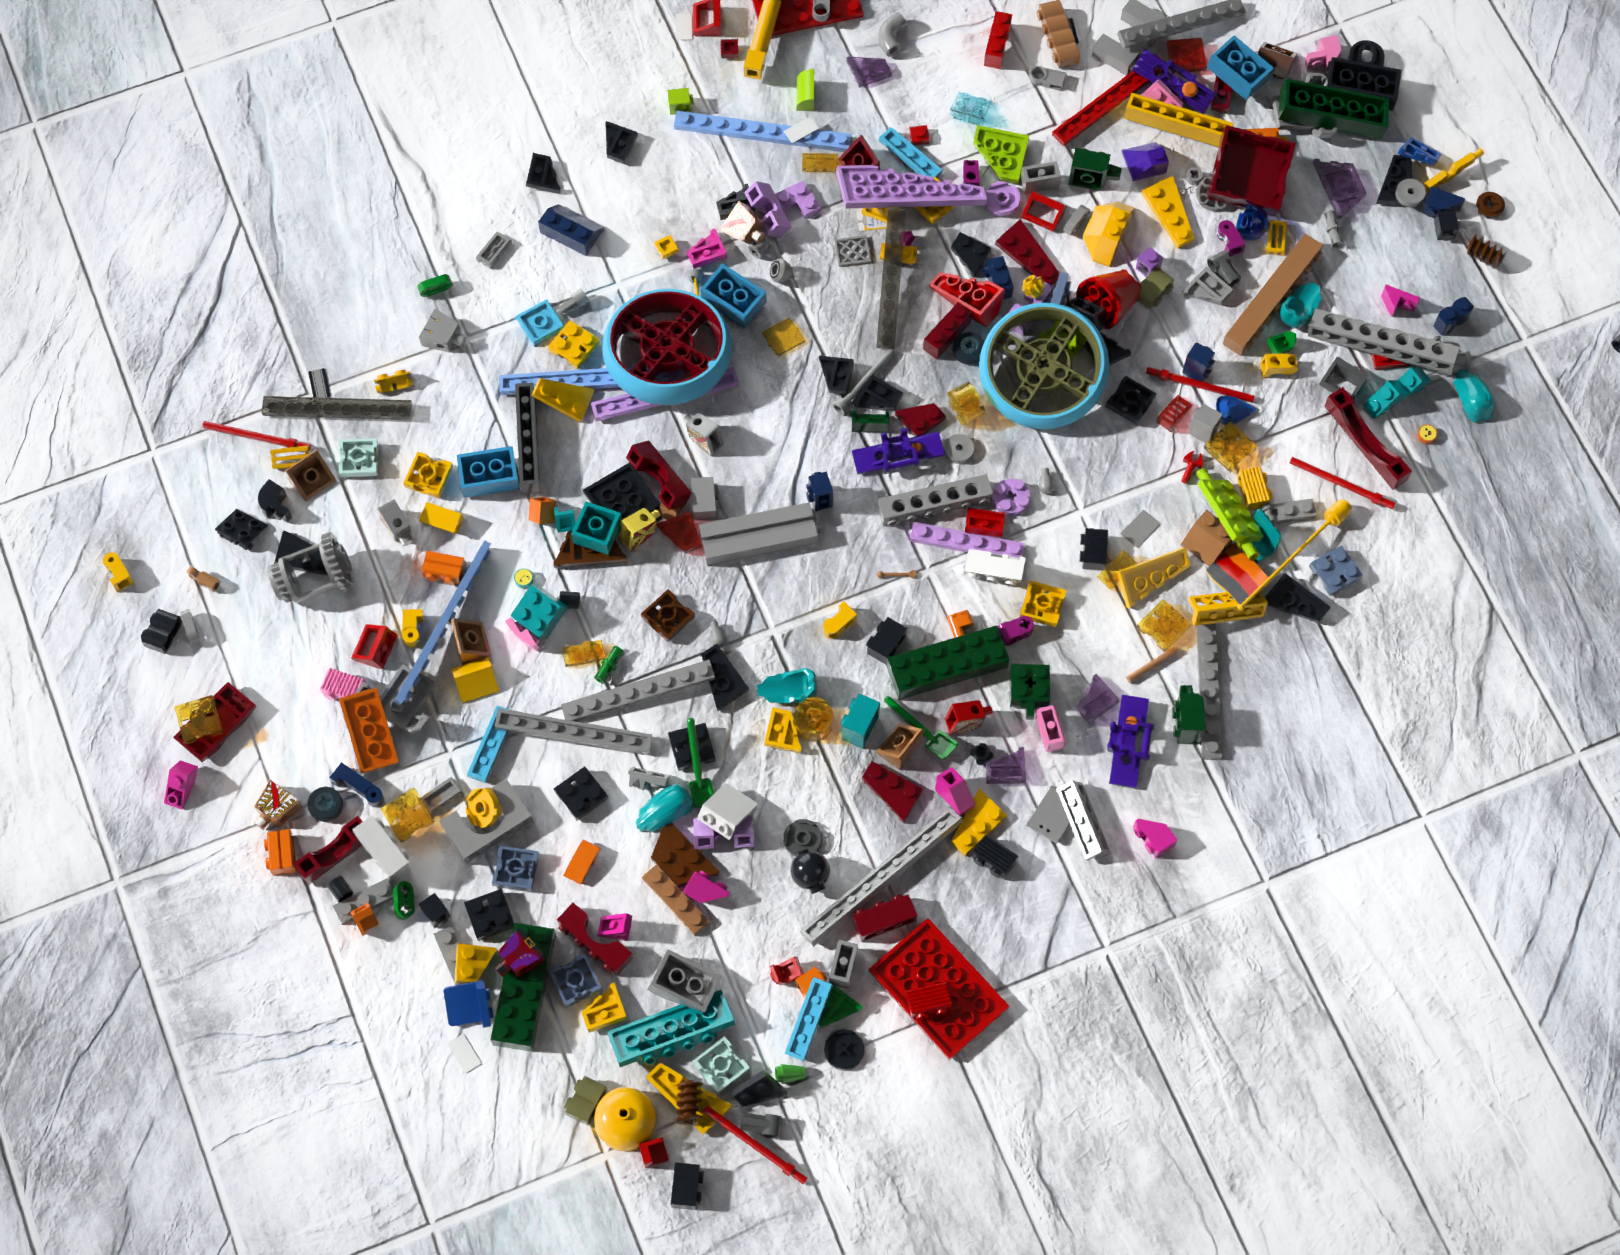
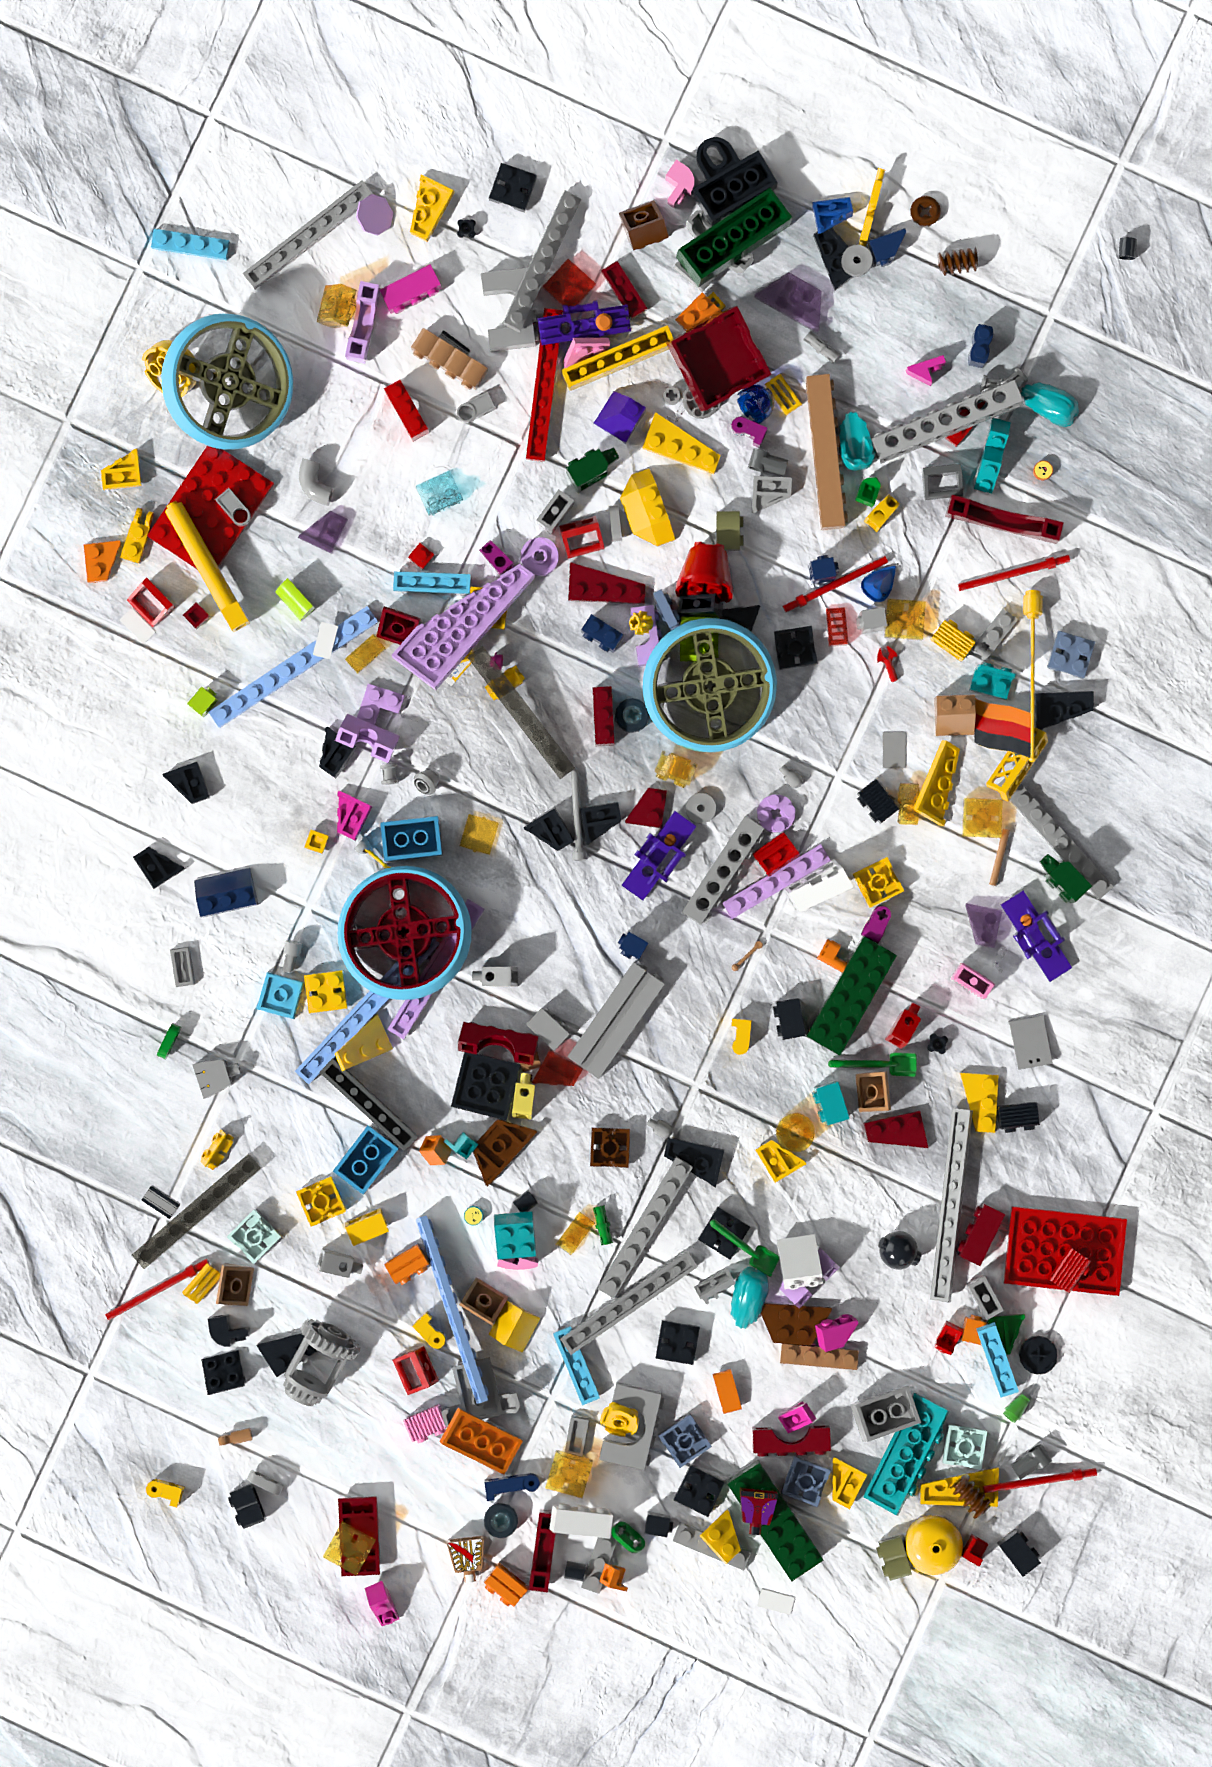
camera: 40 degrees left, 20 degrees up
(468, 1004) = (749, 1568): blue bracket -> none
(596, 528) = (496, 1132): teal brick -> none
(743, 224) = (363, 770): torso -> none
(758, 1089) = (1007, 1441): black wing -> none
(789, 686) = (753, 1122): teal hair -> none
(802, 835) = (867, 1227): dark grey tile -> none
(845, 246) = (473, 718): light grey window -> none
(870, 422) = (613, 847): dark green hinge -> none
(954, 791) = (948, 1094): dark pink slope -> none
(970, 252) = (557, 627): black wing -> none
(980, 297) = (599, 668): red wedge -> none
(1002, 151) = (501, 512): lime plate -> none
(1007, 769) = (967, 1038): clear purple wing -> none
(1029, 698) = (927, 973): dark green hinge -> none
(1083, 820) = (1057, 1029): fence -> none
(1148, 261) = (706, 512): medium lavender brick -> none
(1155, 835) = (1121, 994): dark pink slope -> none
(1231, 512) = (954, 680): lime plate -> none
(1240, 67) = (628, 265): dark azure brick -> none
(1446, 225) = (908, 265): black brick -> none

